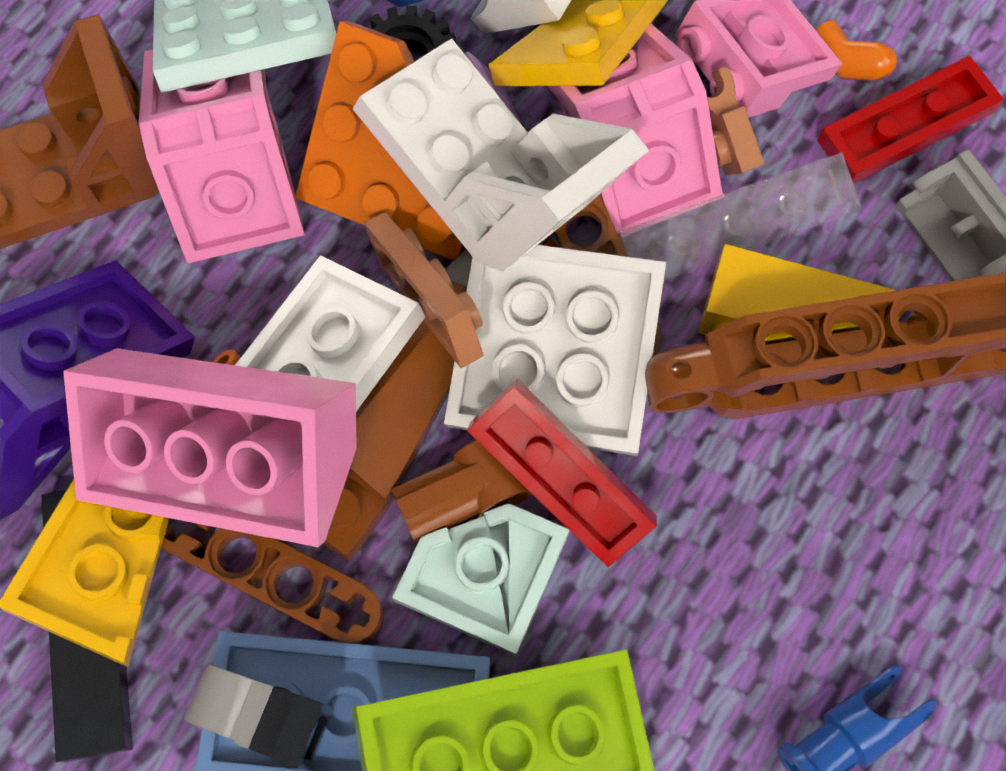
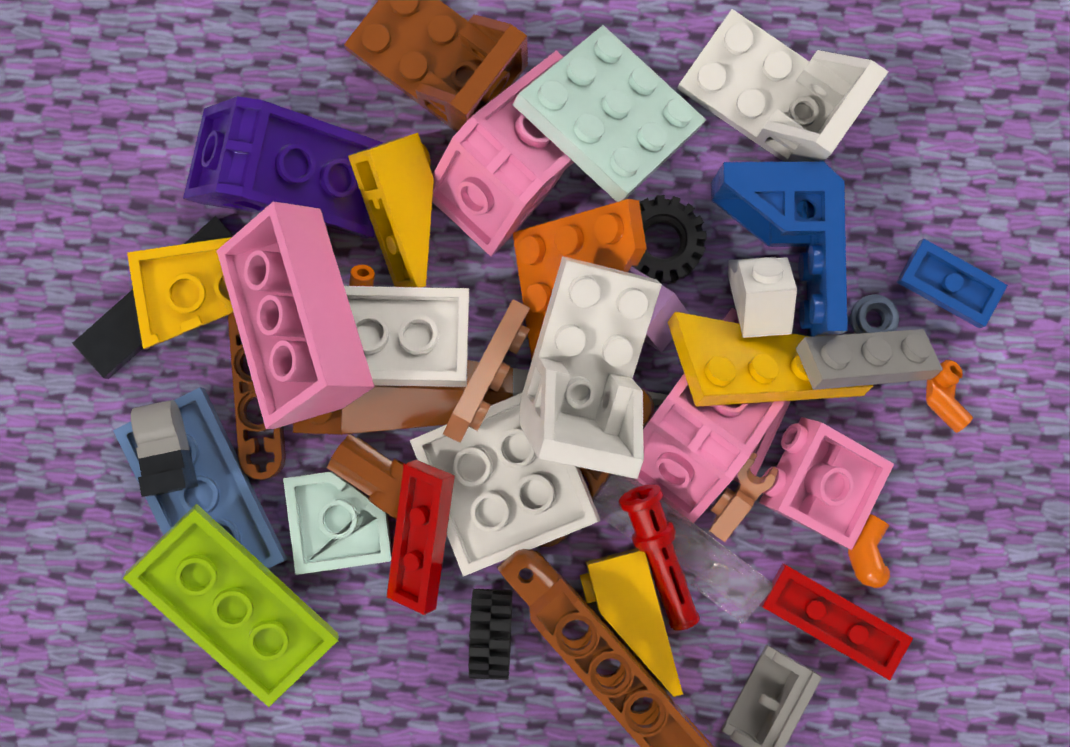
camera: 55 degrees right, 15 degrees up
(176, 280) = (398, 198): none -> yellow slope
(717, 224) = (655, 538): none -> red pin
(725, 460) = (490, 634): none -> black tyre

